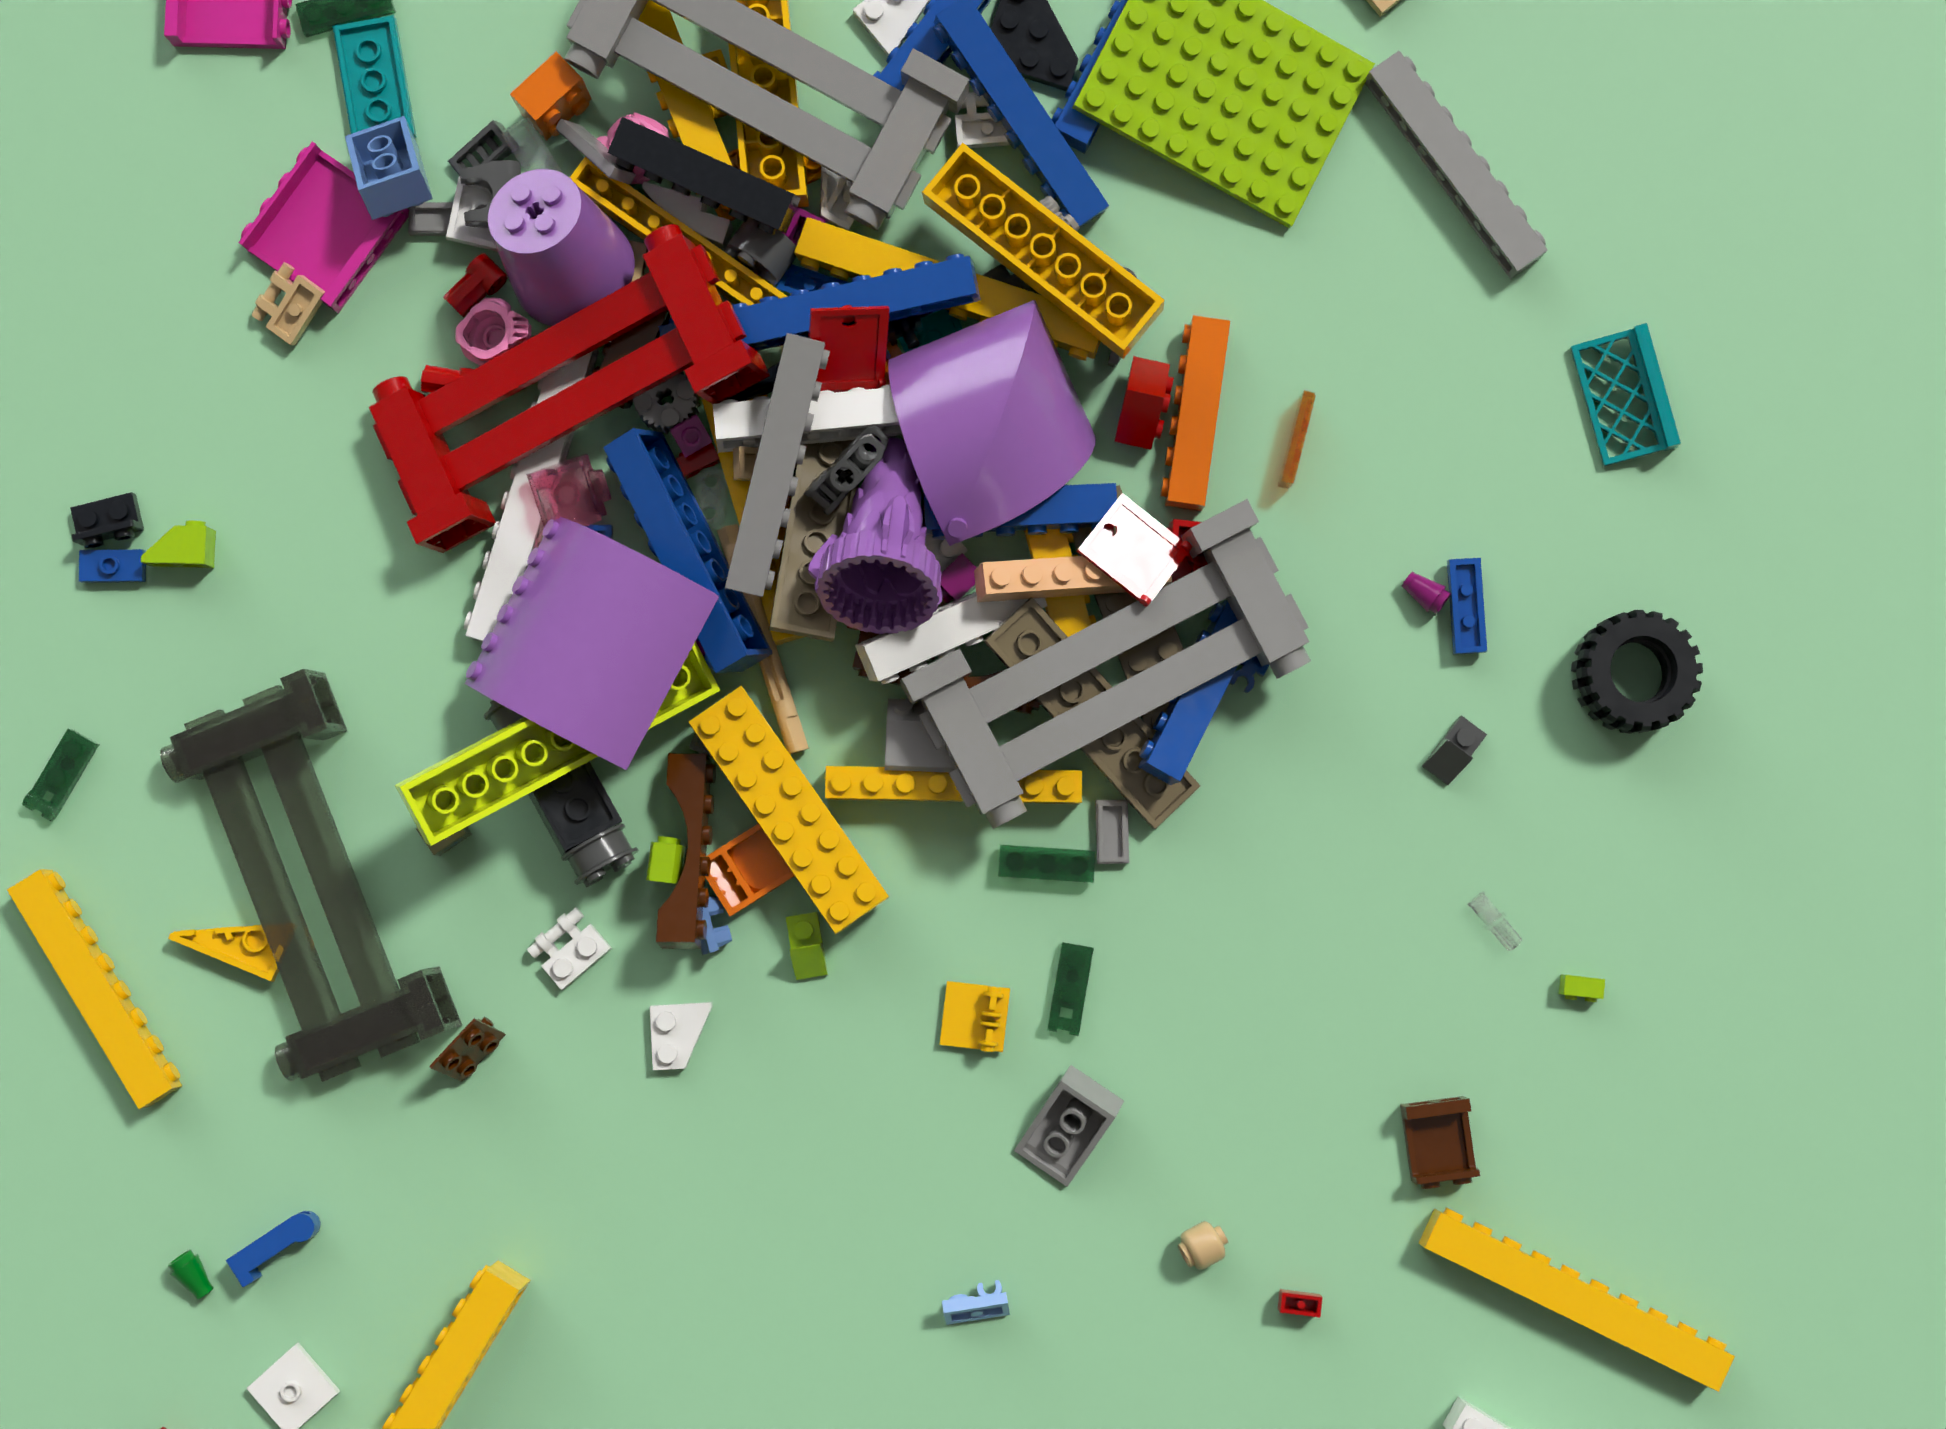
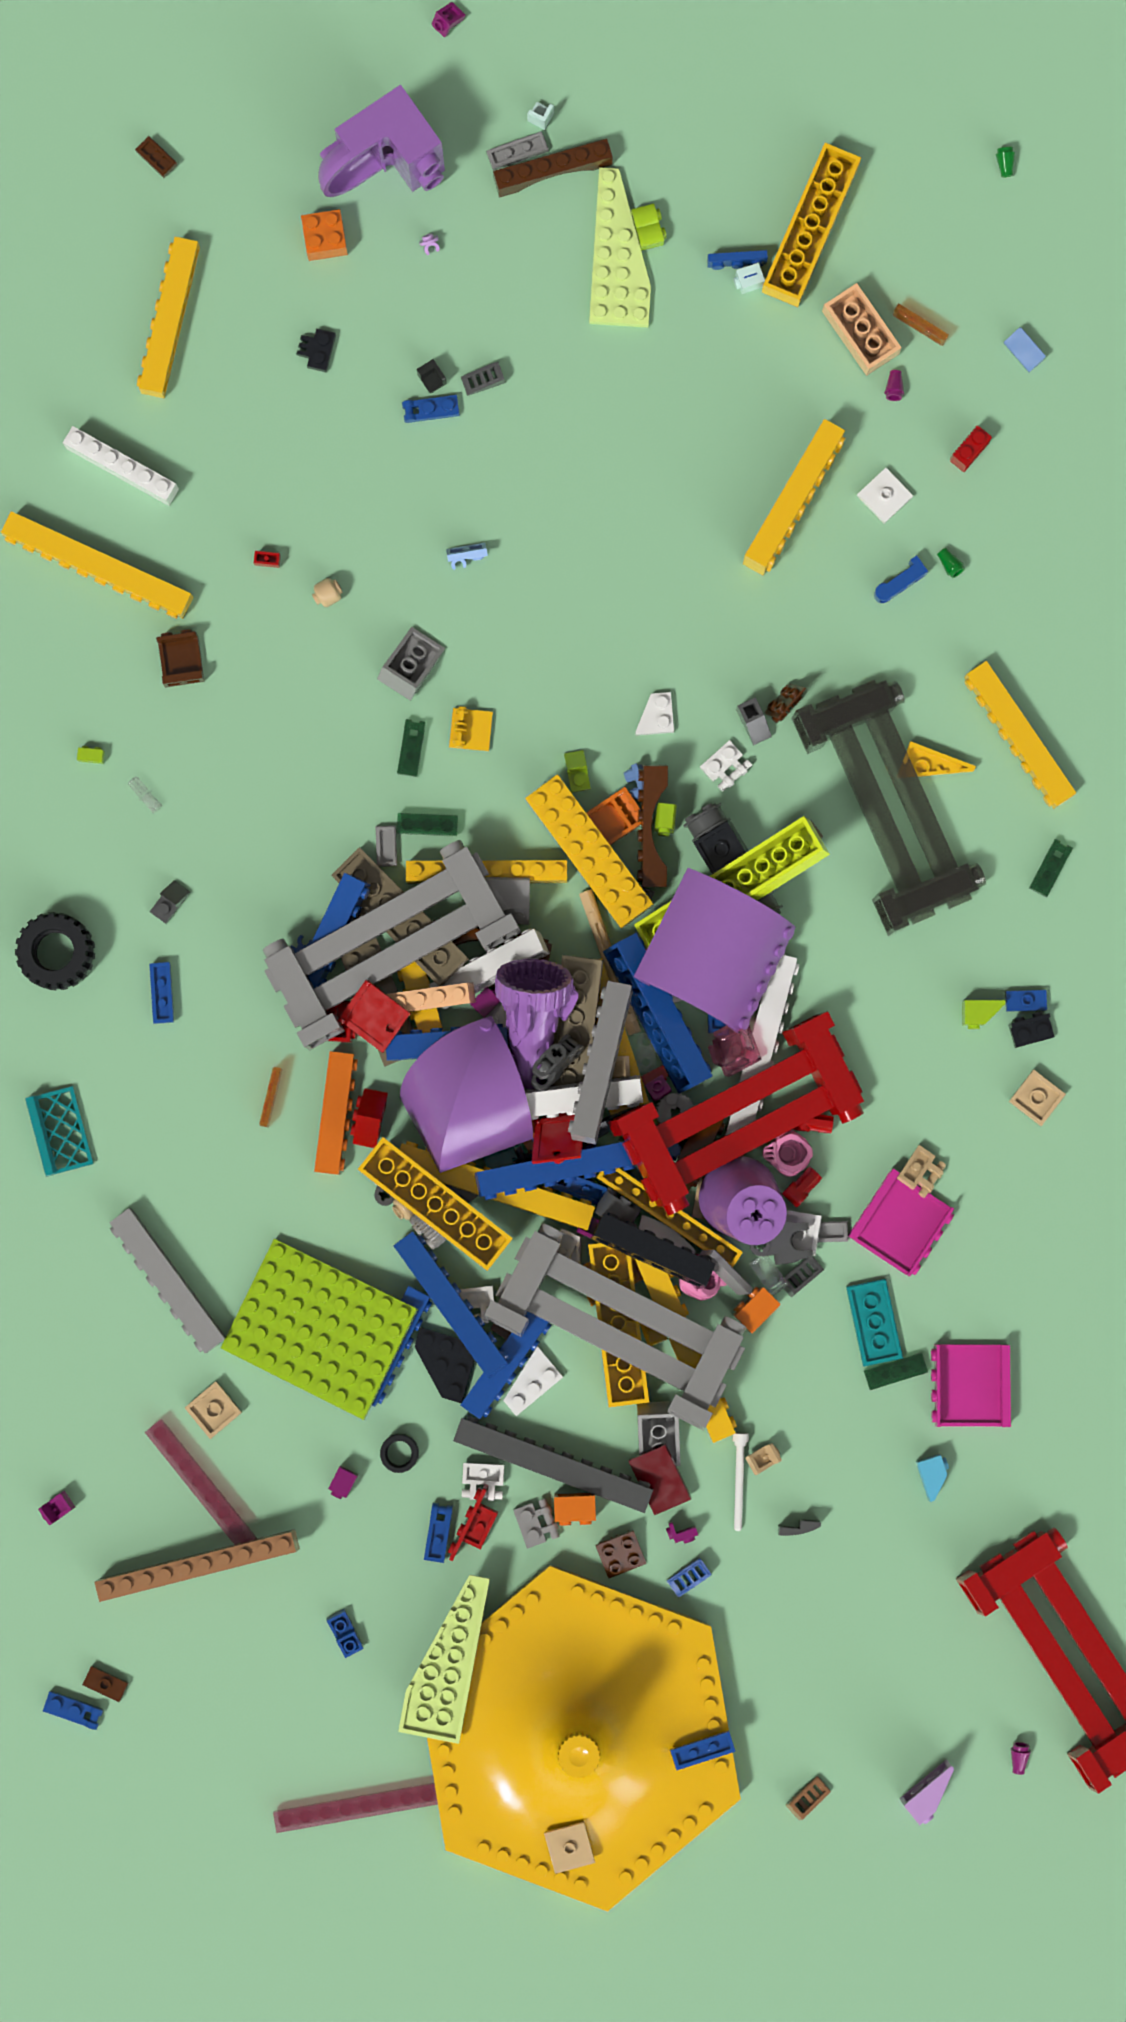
camera: 175 degrees left, 0 degrees up
(103, 414) = (1037, 1097): none -> tan plate
(388, 168) = (858, 1257): medium blue brick -> none
(519, 1018) = (754, 721): none -> slope
(1426, 592) = (187, 1001): magenta cone -> none

